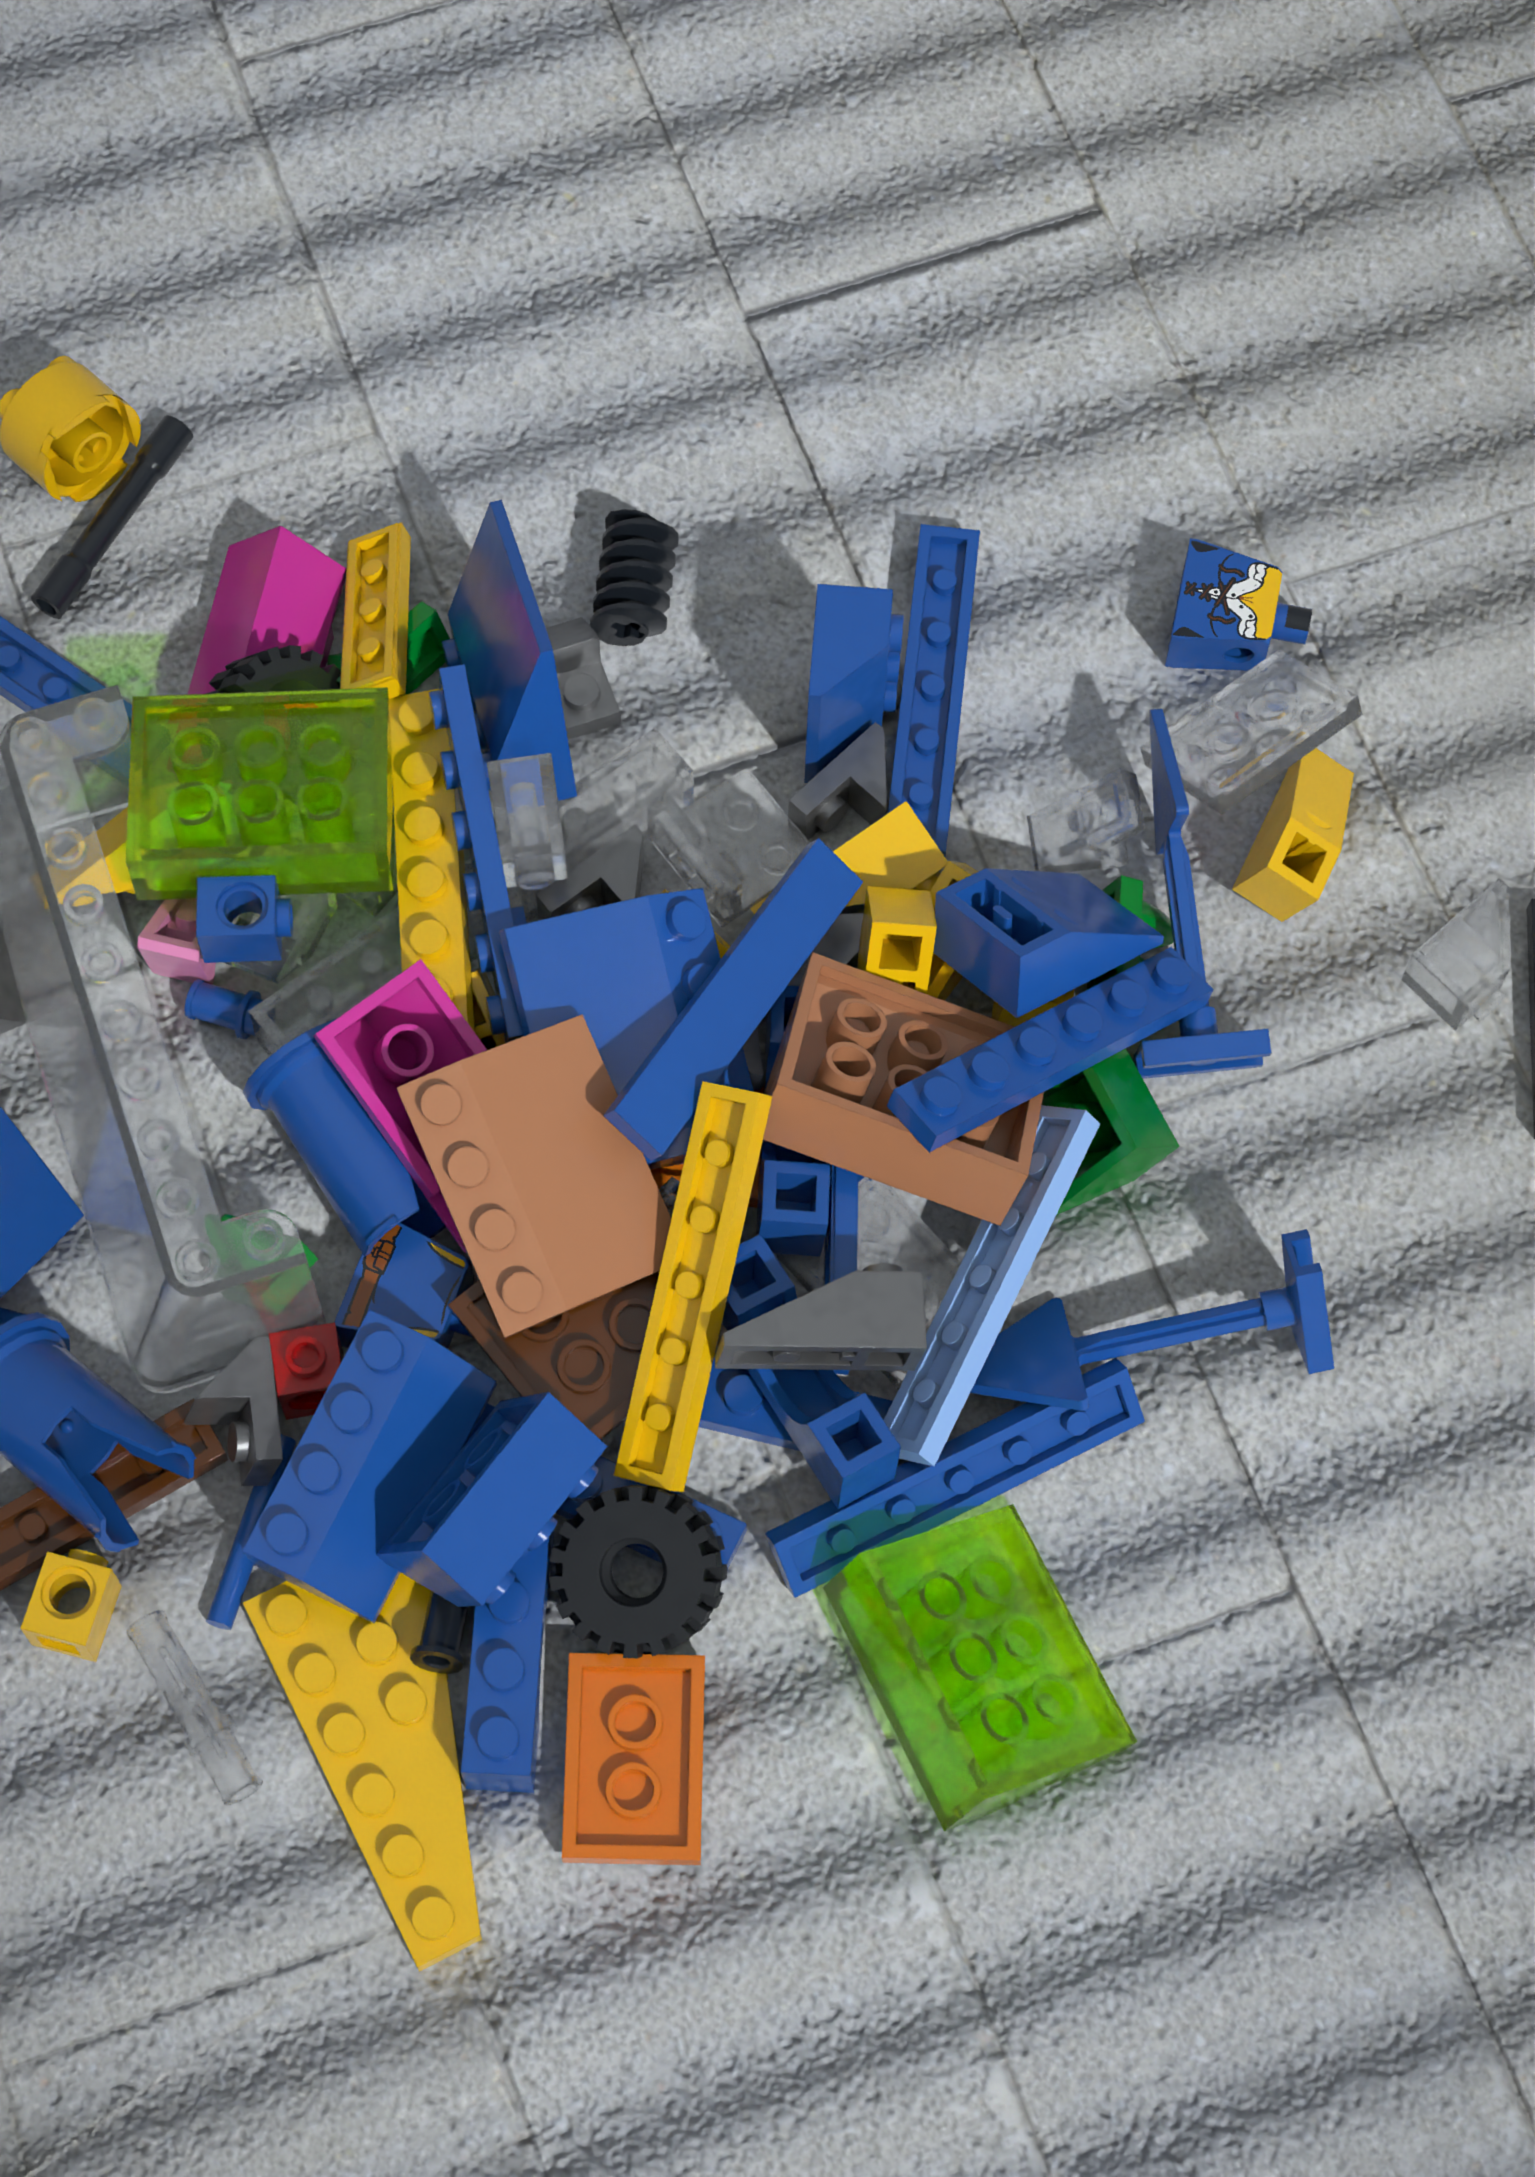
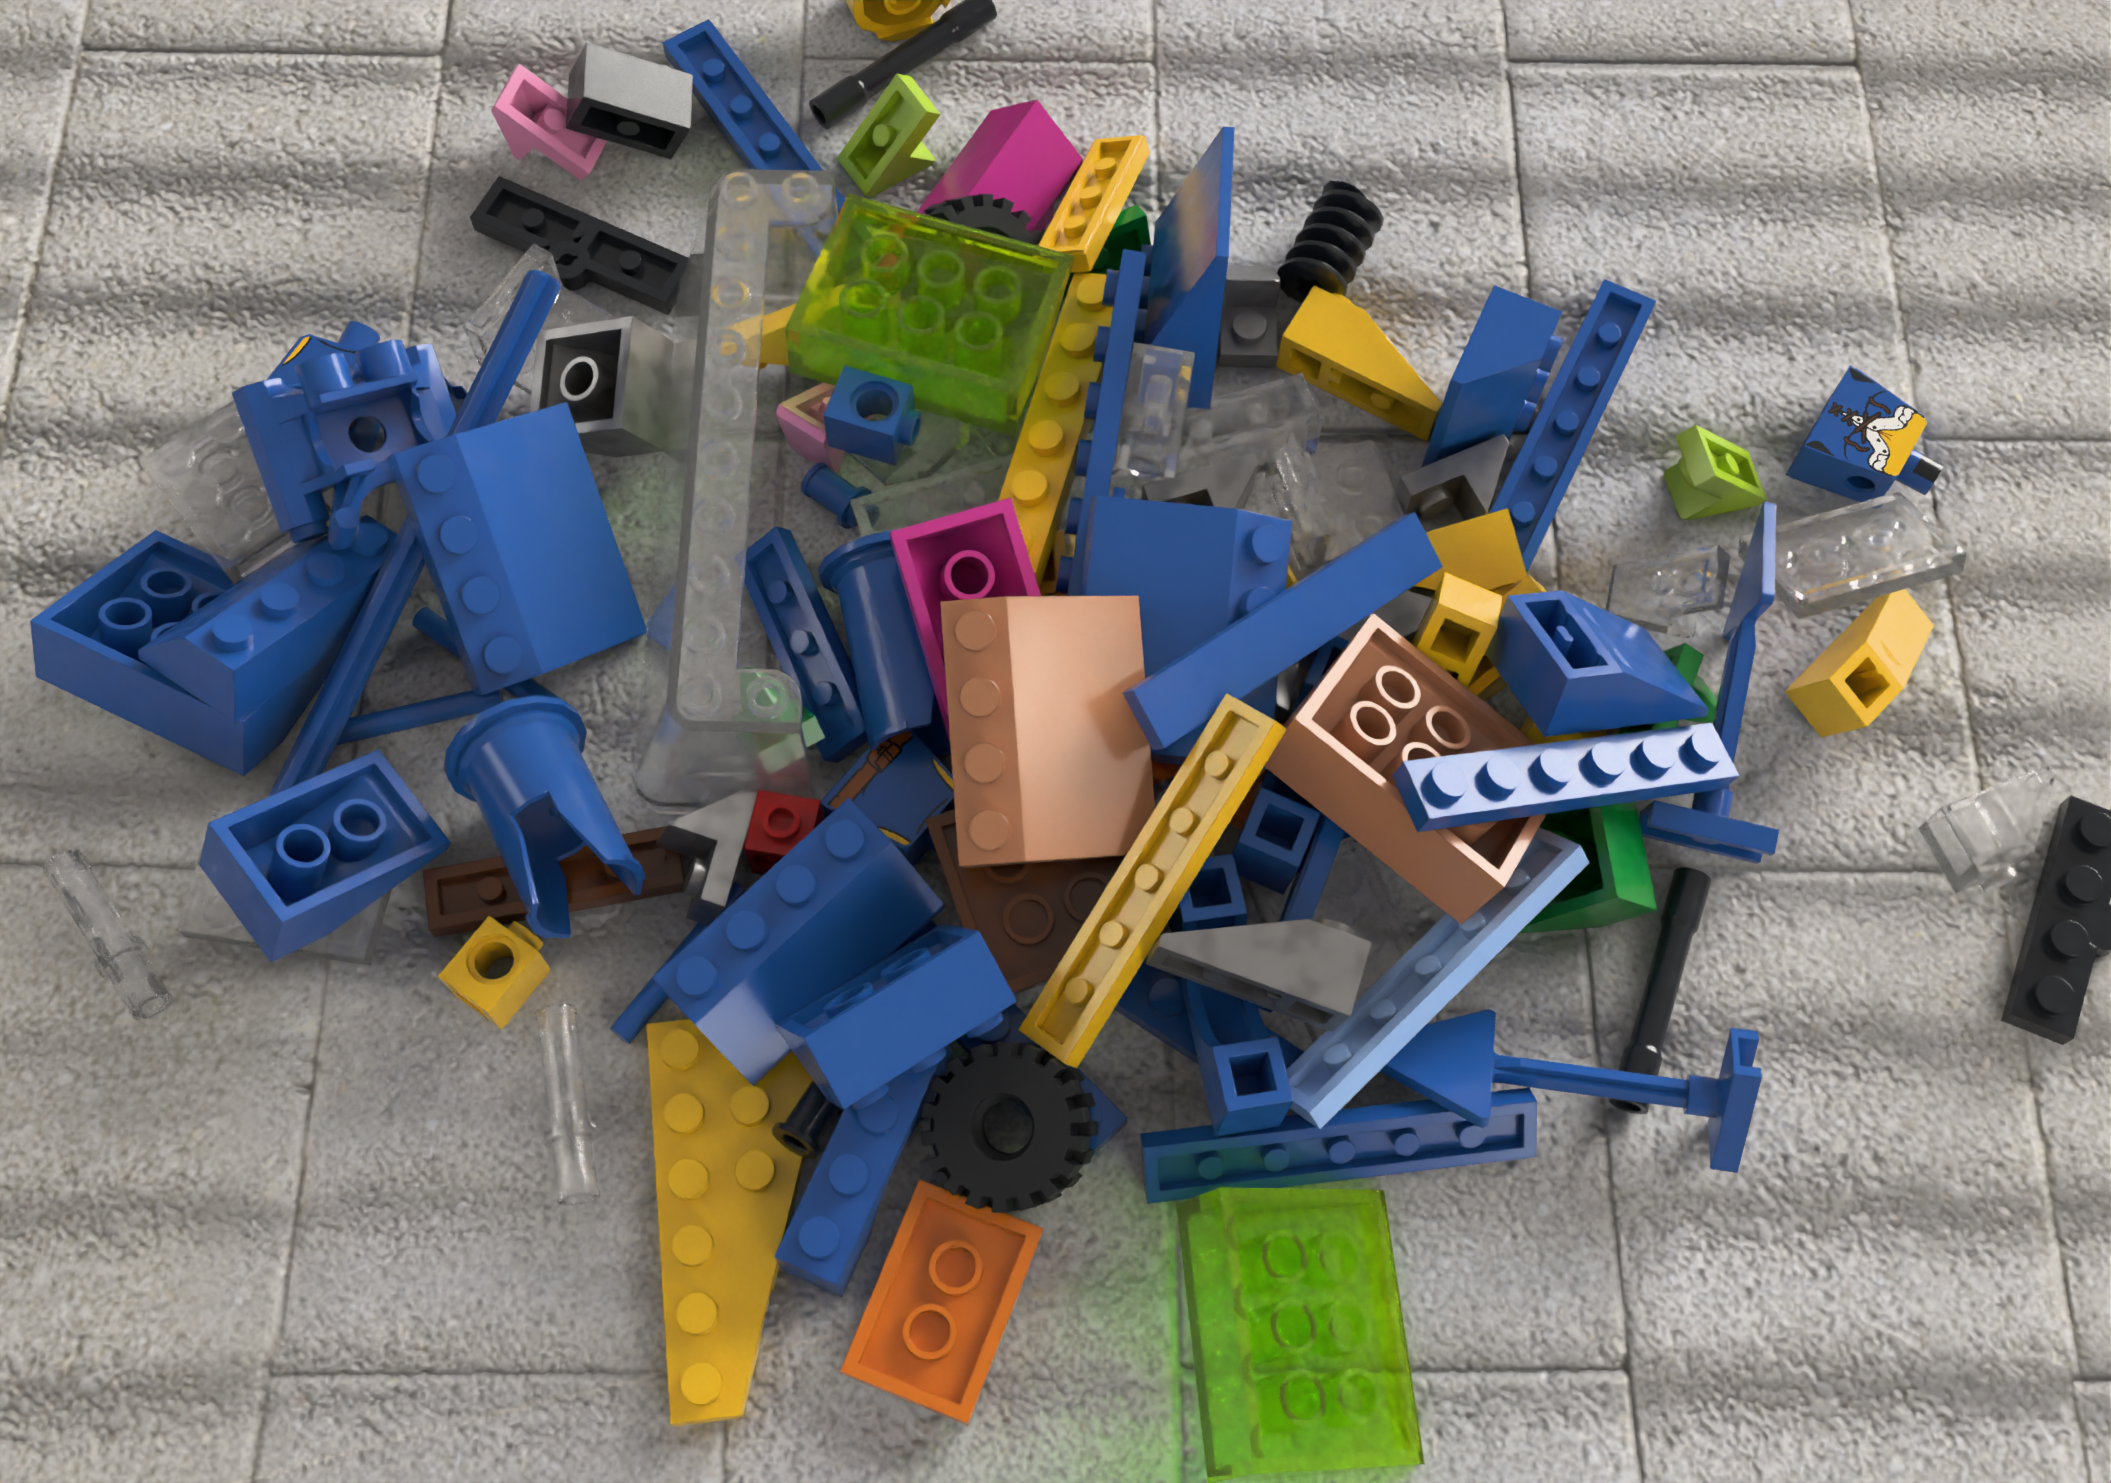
camera: 20 degrees right, 0 degrees up
(135, 610) = (890, 138): none -> lime slope
(258, 1170) = (805, 640): none -> blue plate
(692, 689) = (1354, 360): none -> yellow slope
(1094, 694) = (1712, 476): none -> lime slope
(1206, 1150) = (1678, 925): none -> black piece

